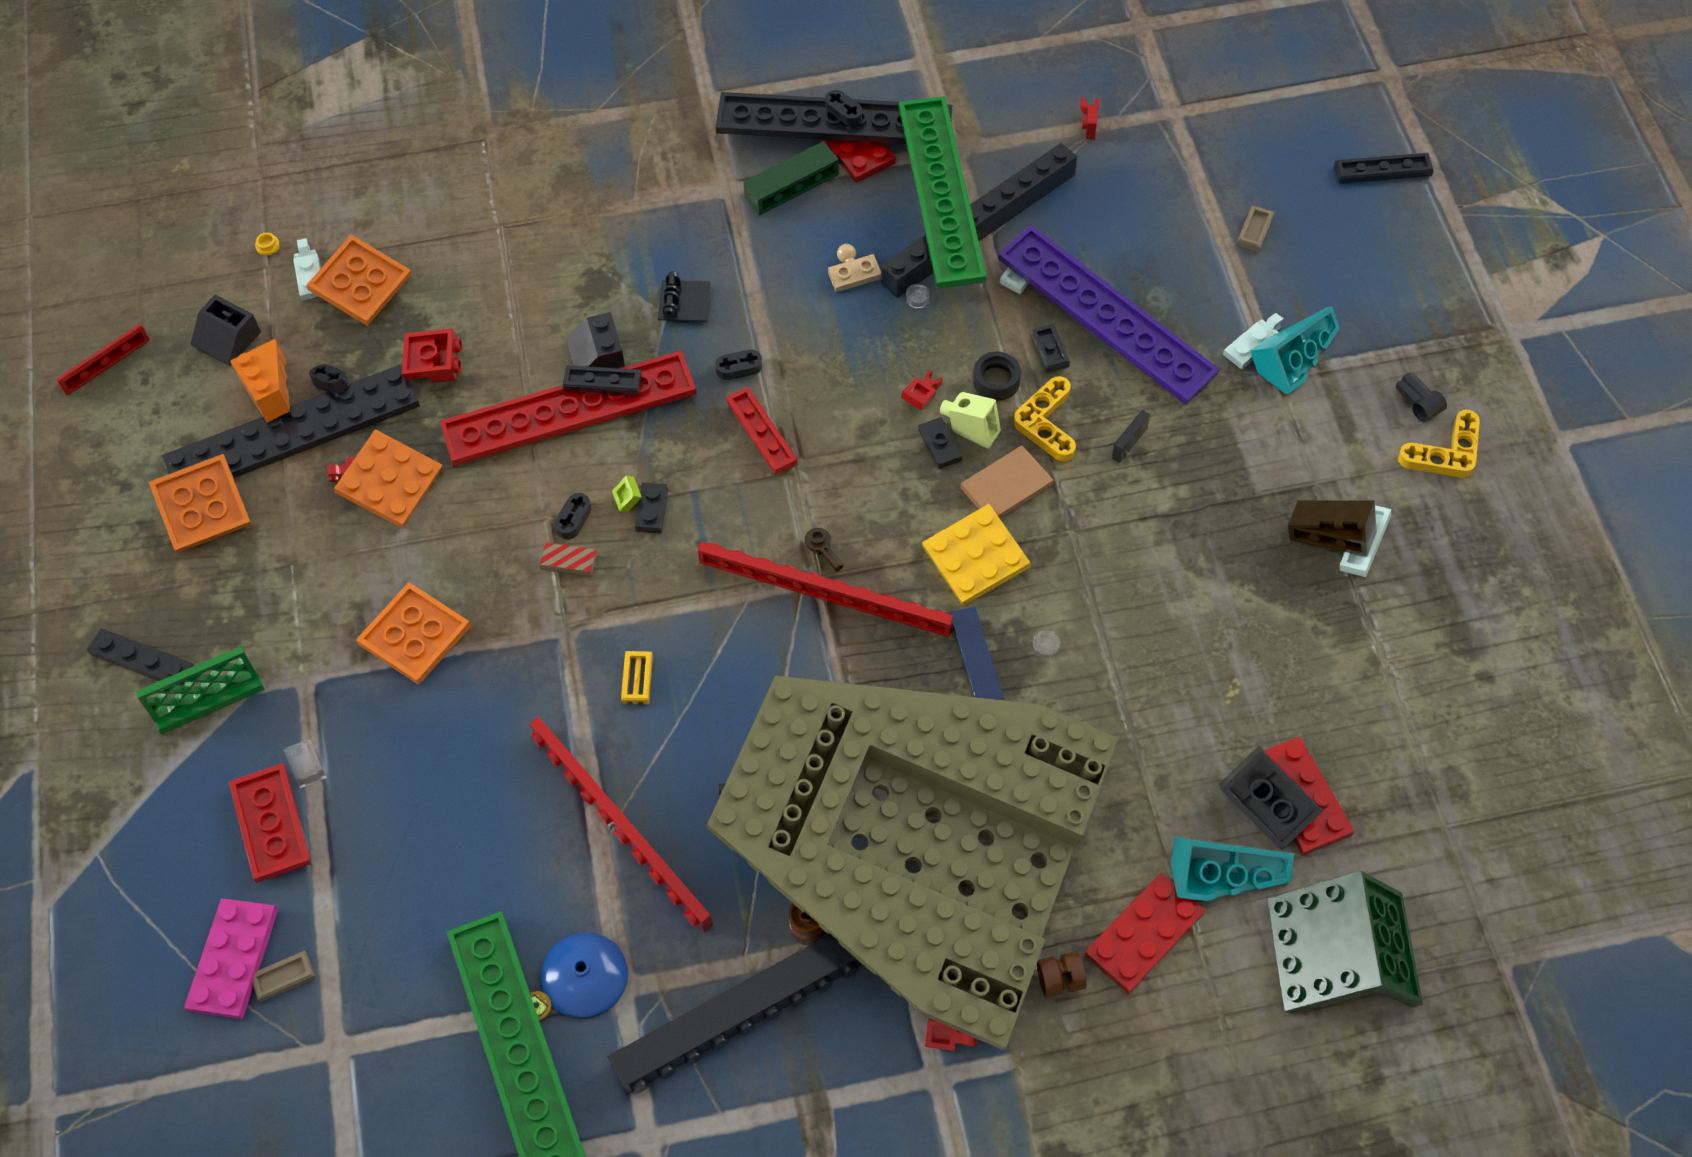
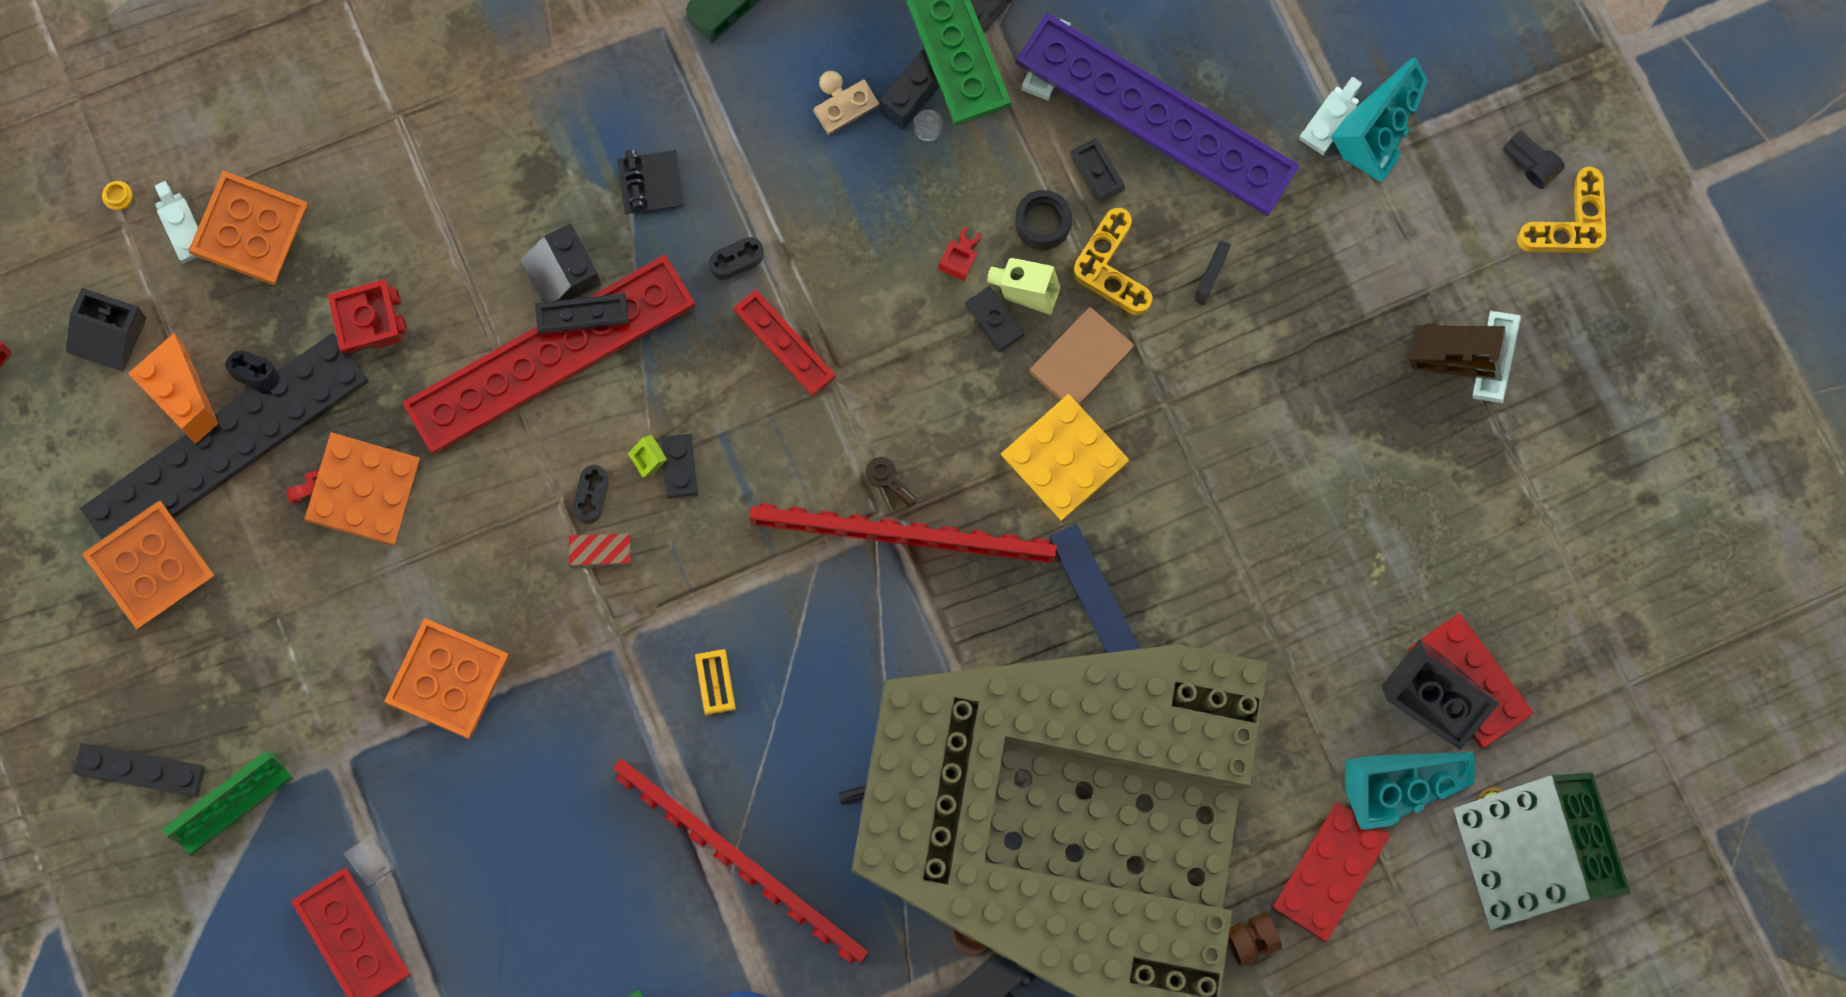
camera: 15 degrees left, 15 degrees up
(1046, 644) = (1164, 553): clear tile -> none

